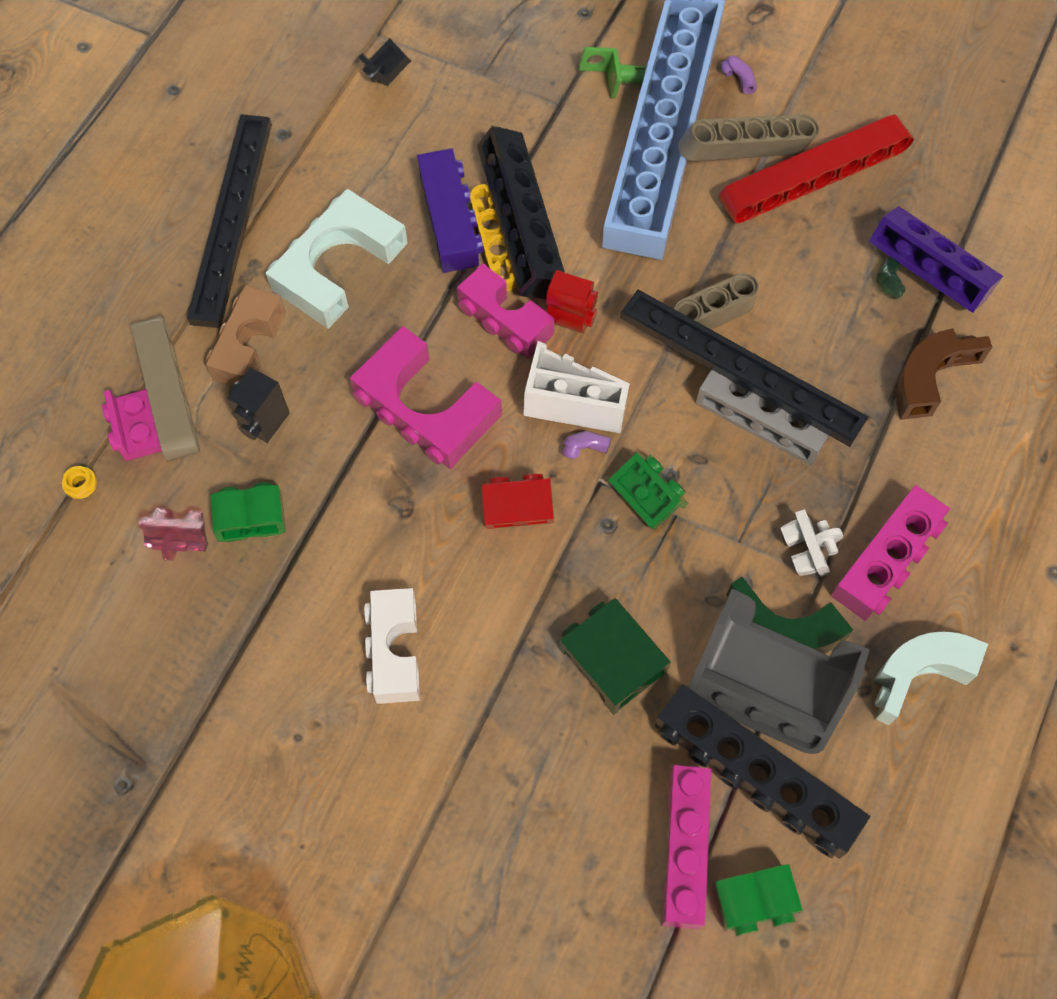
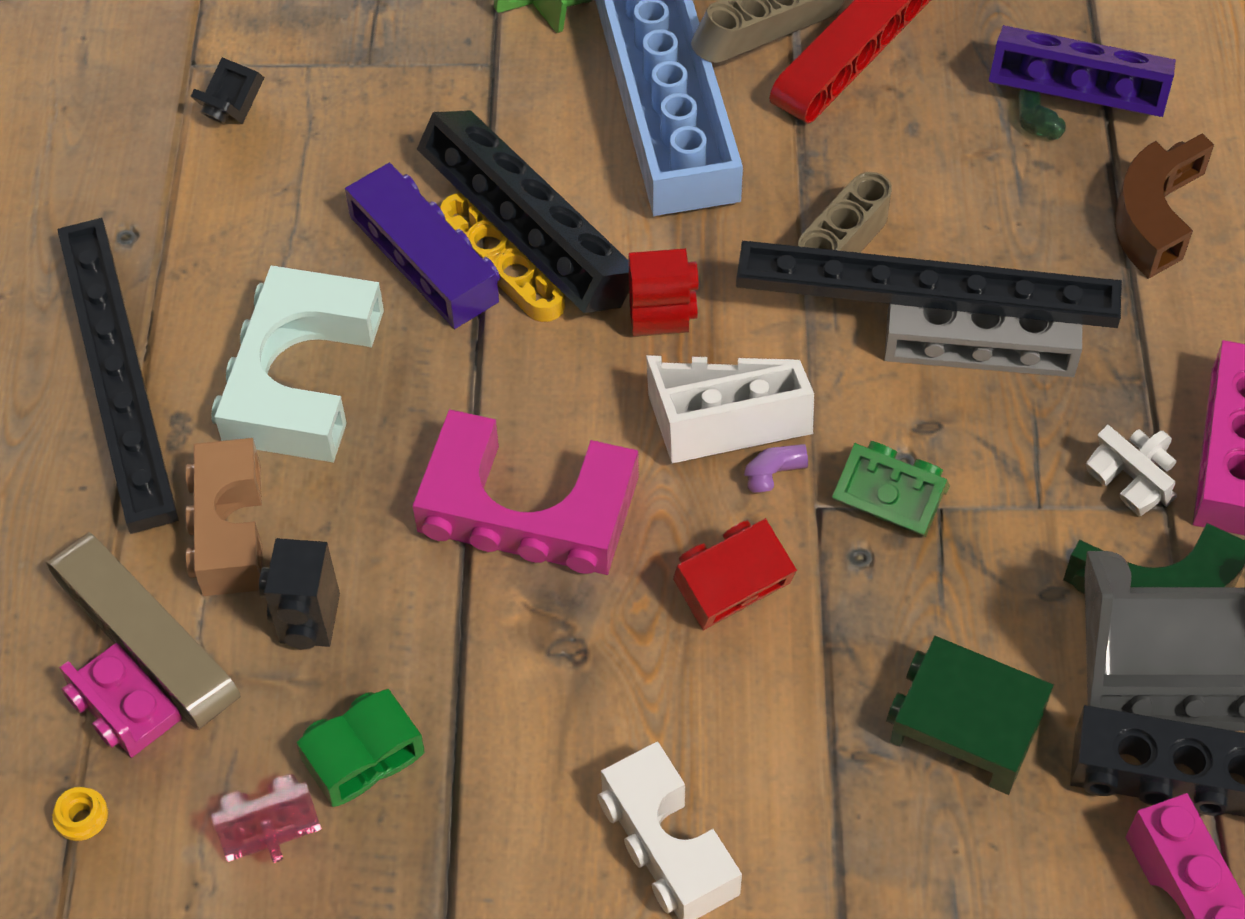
camera: 25 degrees left, 10 degrees down
(520, 328) = (605, 356): dark pink arch -> none

